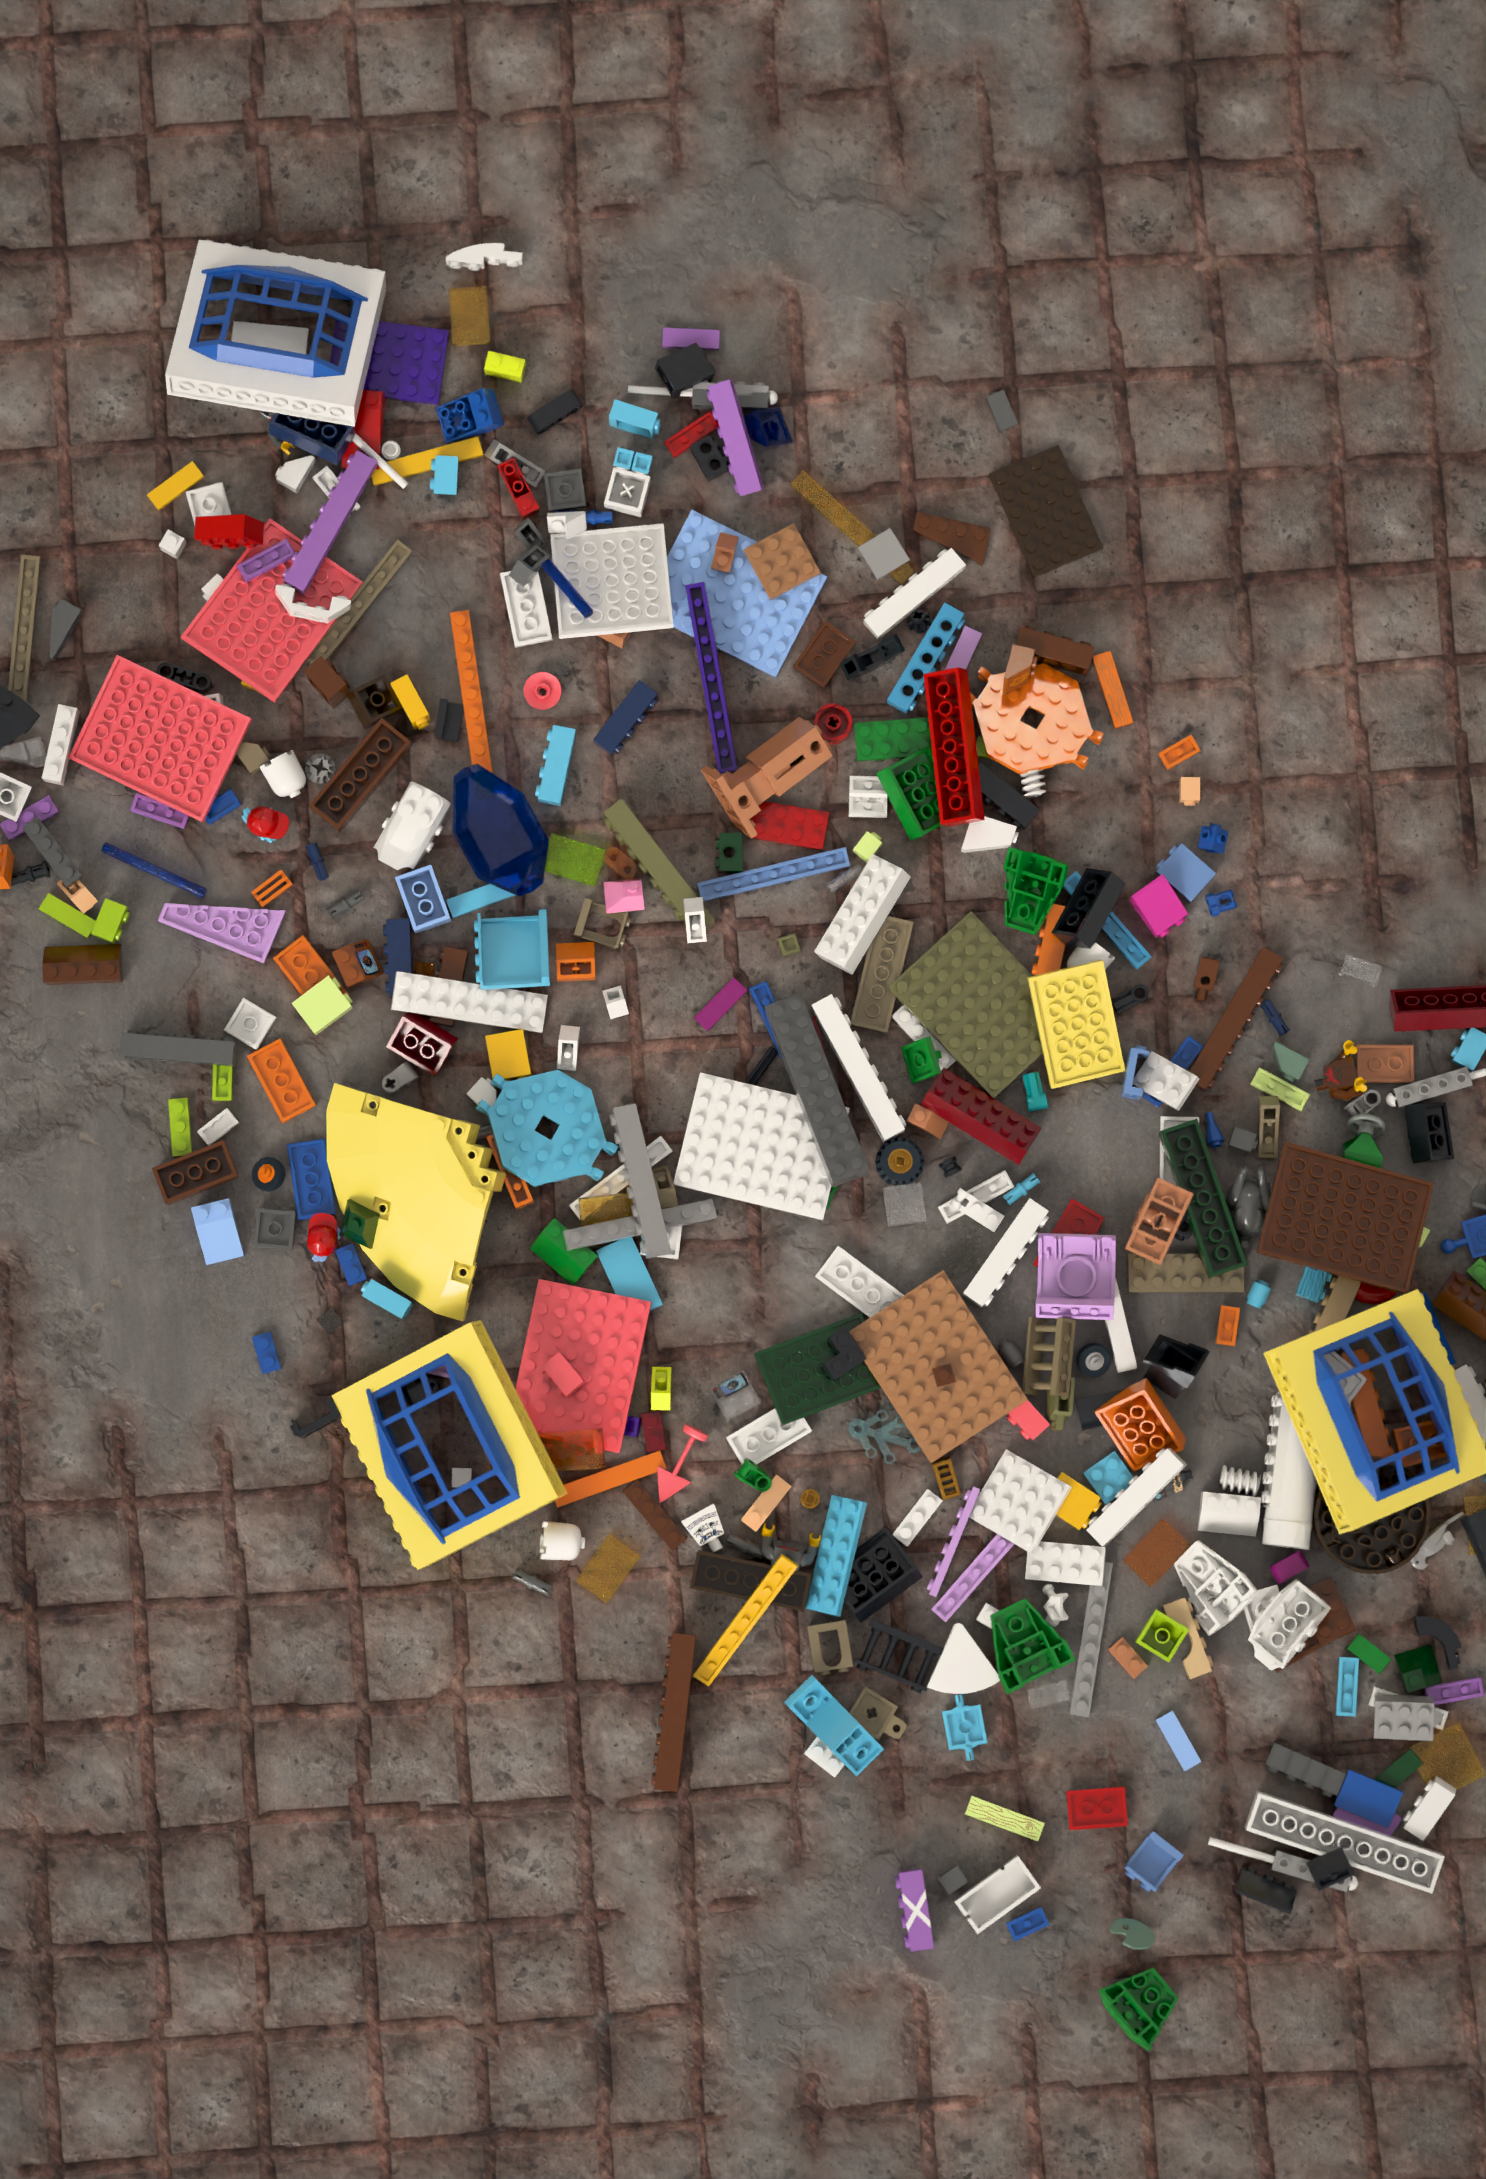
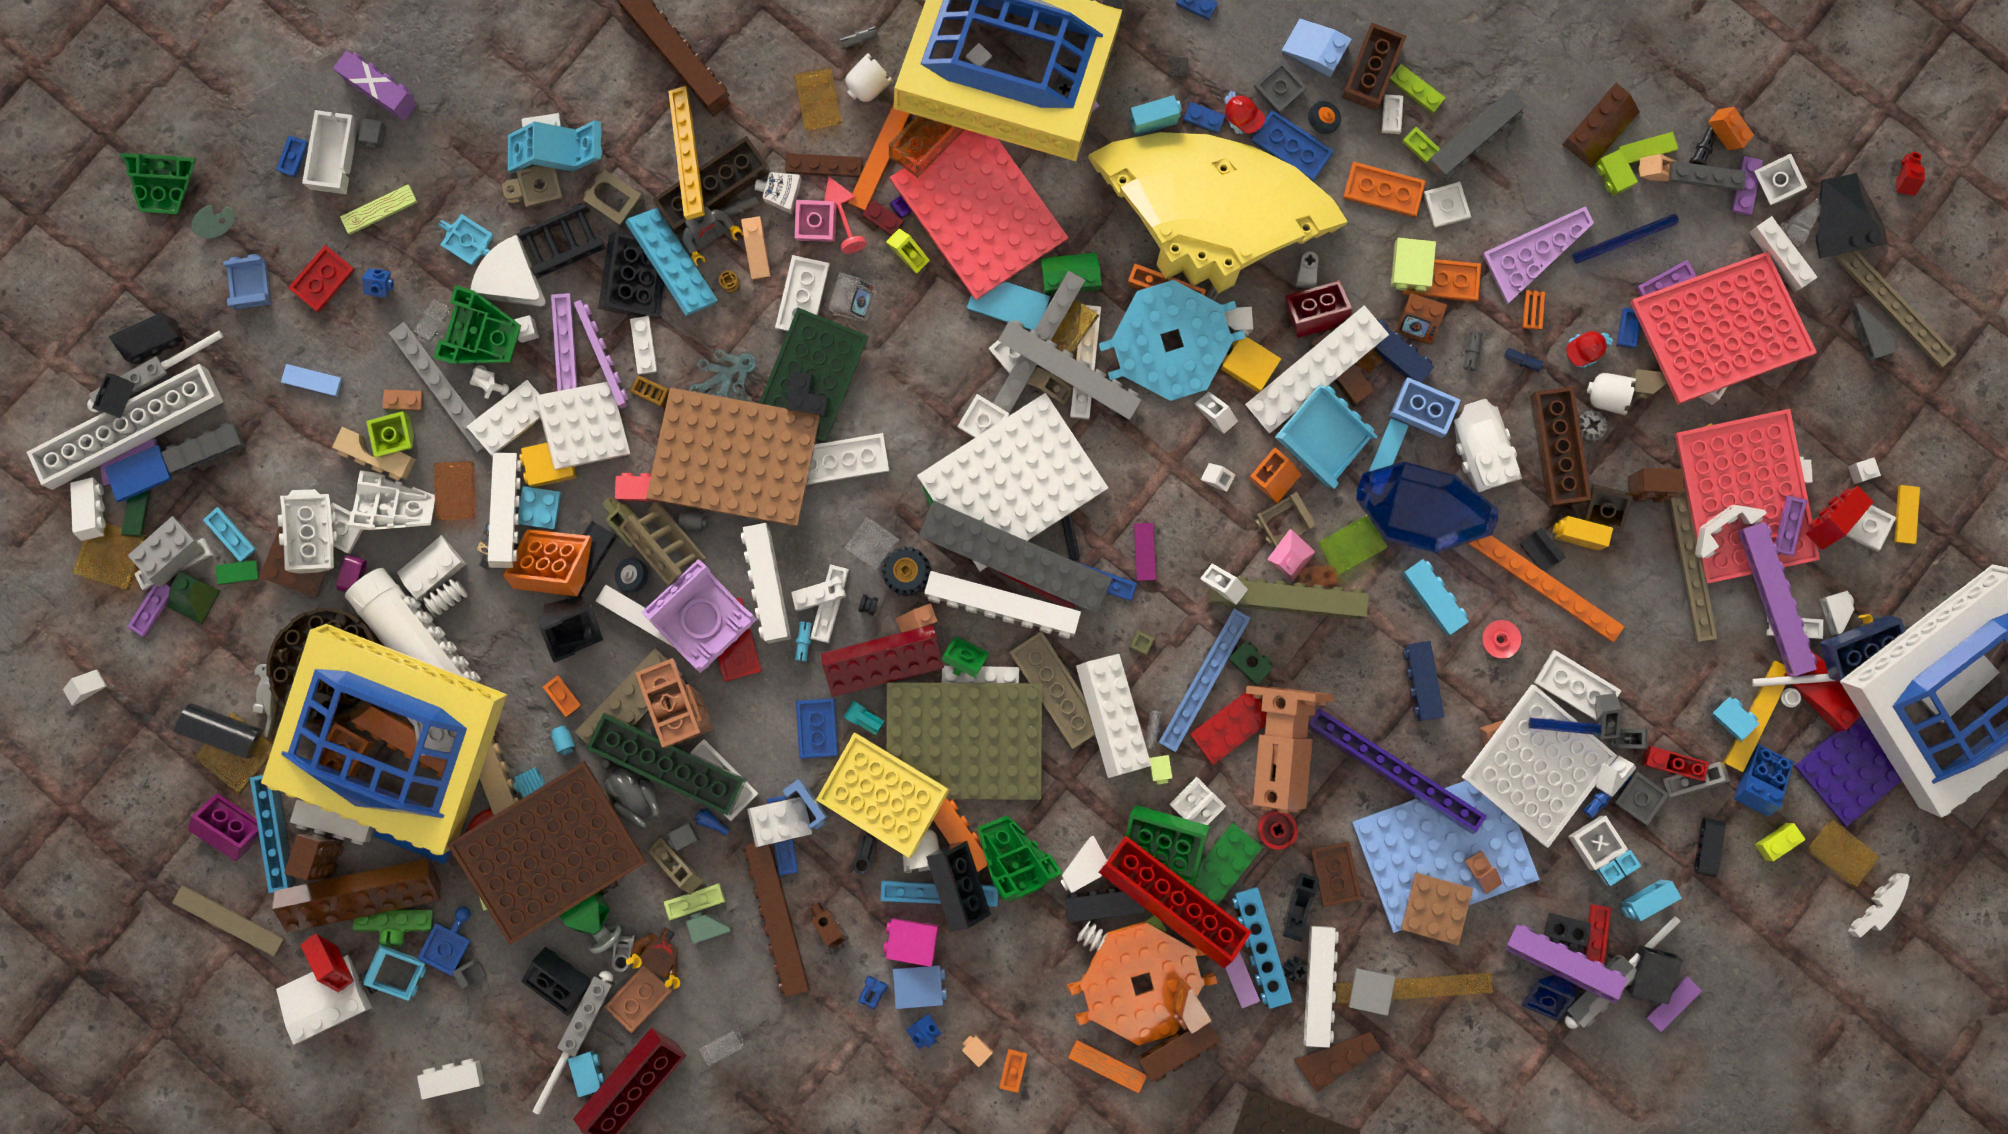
camera: 135 degrees right, 0 degrees up
(181, 671) = (1742, 393): black beam -> none
(359, 1223) = (1227, 146): dark green slope -> none
(563, 1375) = (982, 187): coral brick -> none
(704, 1476) = (815, 220): none -> bright pink brick
(734, 1215) = (981, 416): none -> white plate
(751, 1474) = (782, 255): green piece -> none
(943, 1375) = (721, 453): reddish brown plate -> none
(1060, 1760) = (377, 282): none -> blue brick
(1073, 1120) = (817, 728): none -> blue tile
(1274, 1017) = (749, 949): dark blue axle -> none
(1444, 1634) = (208, 636): black arch -> none

